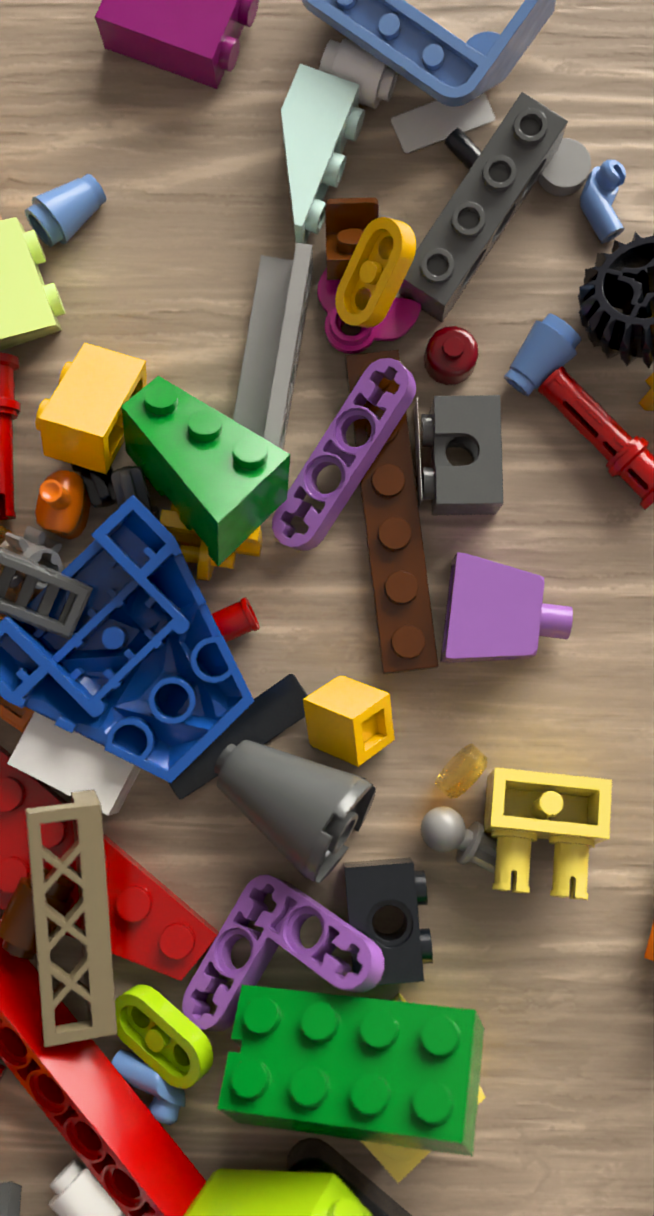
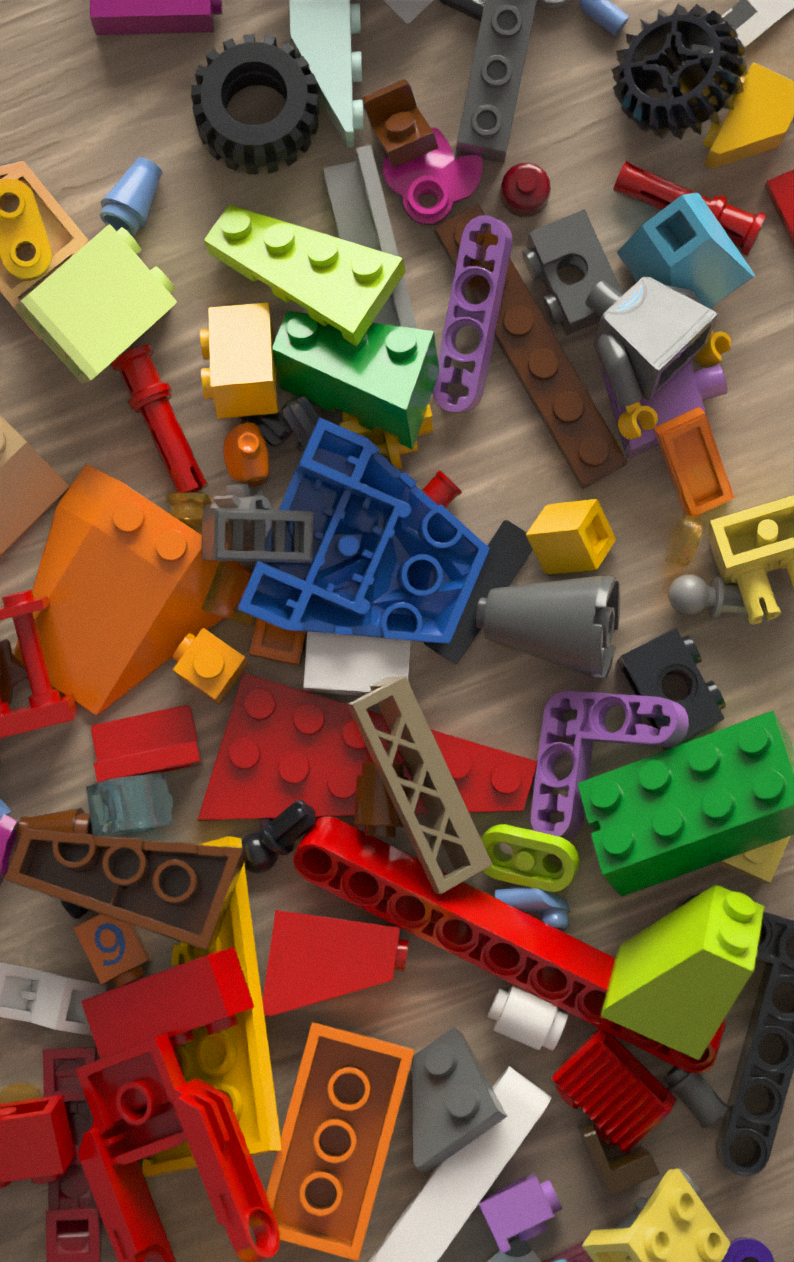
camera: 25 degrees left, 0 degrees up
(207, 354) = (319, 272): none -> wing
(210, 127) = (248, 66): none -> black tyre
(375, 271) = (435, 146): yellow plate -> none
(417, 448) = (529, 278): white sticker -> none
(504, 696) = (694, 462): none -> orange tile
(508, 553) = (649, 340): none -> torso
(545, 349) = (604, 155): medium blue cone -> none
(580, 487) = (687, 250): none -> medium azure slope

